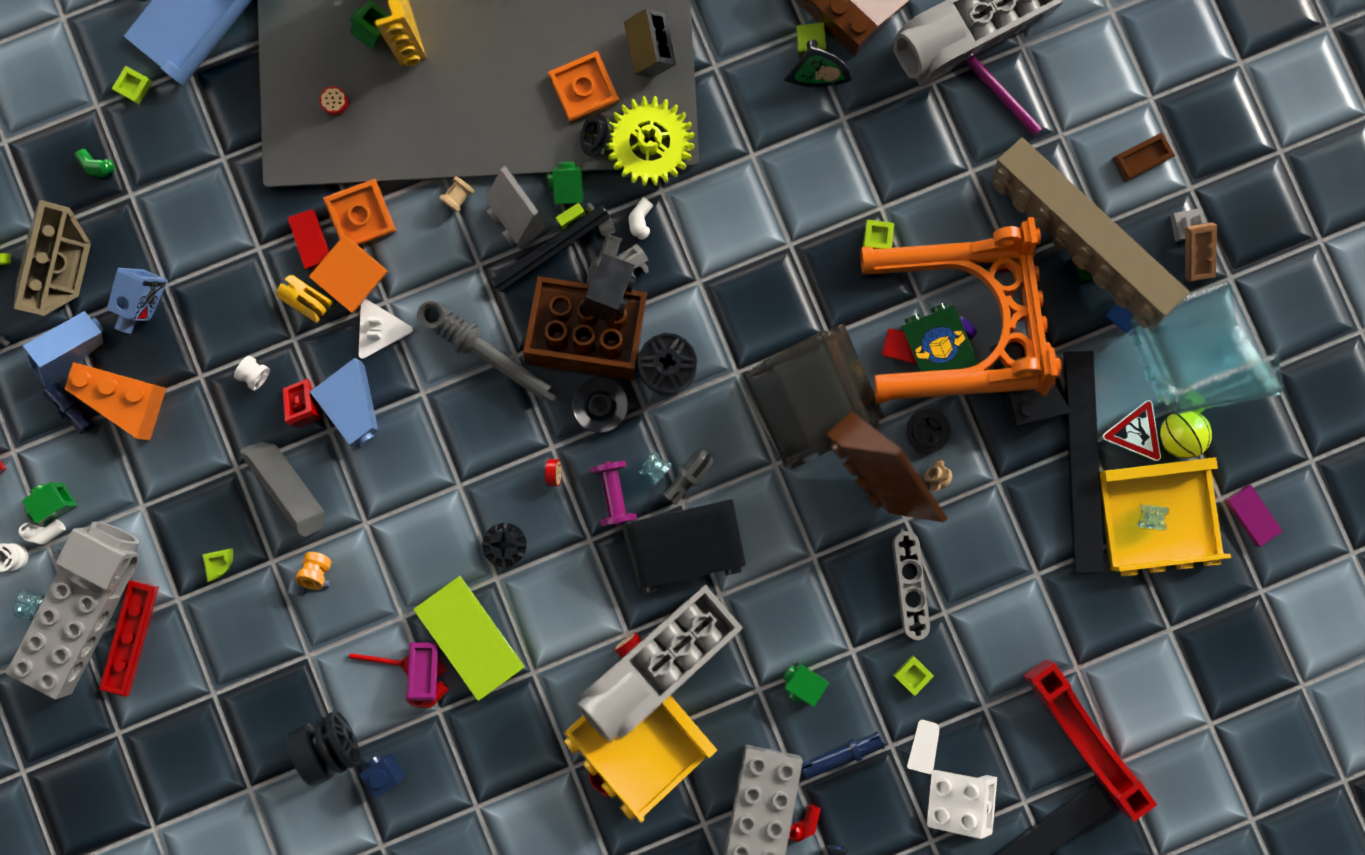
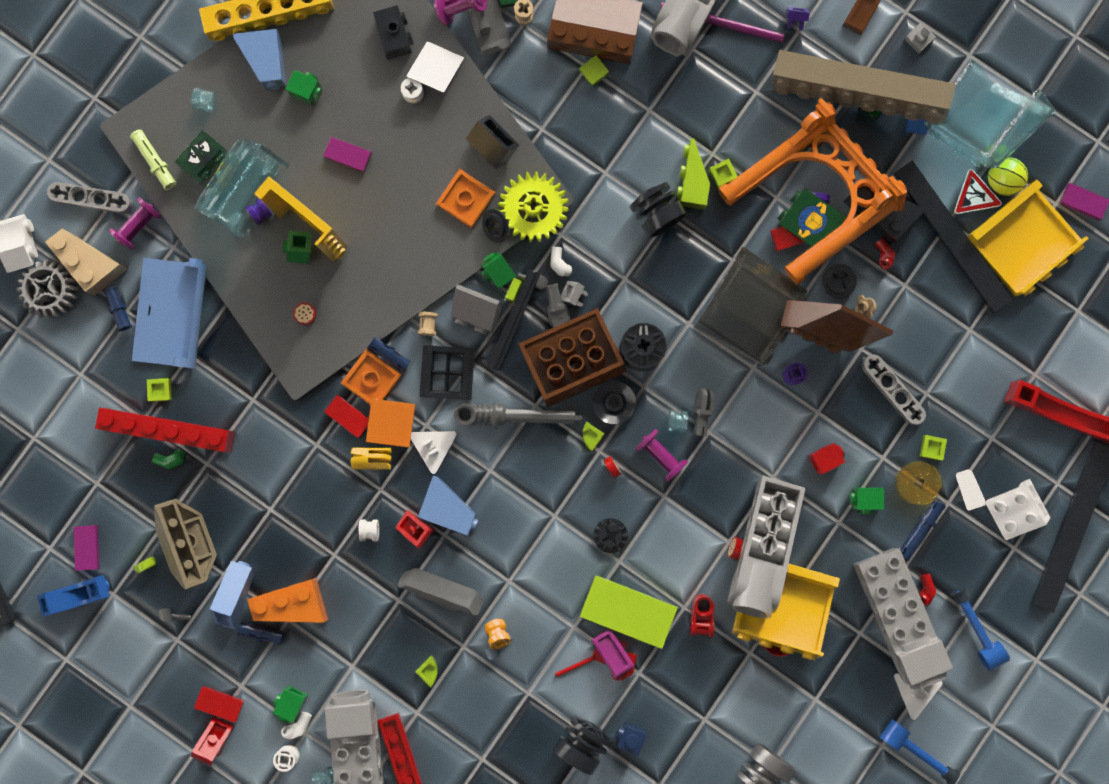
camera: 30 degrees left, 0 degrees up
(108, 130) = (164, 430): none -> red arch
(134, 296) = (255, 522): medium blue torso -> none
(394, 200) = (388, 354): none -> dark blue pin
(464, 274) = (428, 370): none -> black piece
(541, 697) = (702, 620): none -> red piece
(553, 425) = (591, 436): none -> lime tile
(608, 289) = (573, 321): black brick -> none
(684, 545) = (730, 458): black windscreen -> none
(780, 228) = (656, 207): none -> black wheel
(790, 612) = (827, 458): none -> red brick
(810, 497) = (791, 376): none -> dark purple wheel
(818, 69) = (613, 87): shield -> none
(839, 228) = (695, 181): none -> lime slope
(882, 716) = (929, 489): none -> clear yellow plate
(999, 435) = (887, 254): none -> red arm
(1069, 115) = (797, 14): none -> dark purple tile
(1153, 517) = (1021, 244): clear light blue wheel -> none
(1200, 252) = (940, 50): medium nougat plate -> none

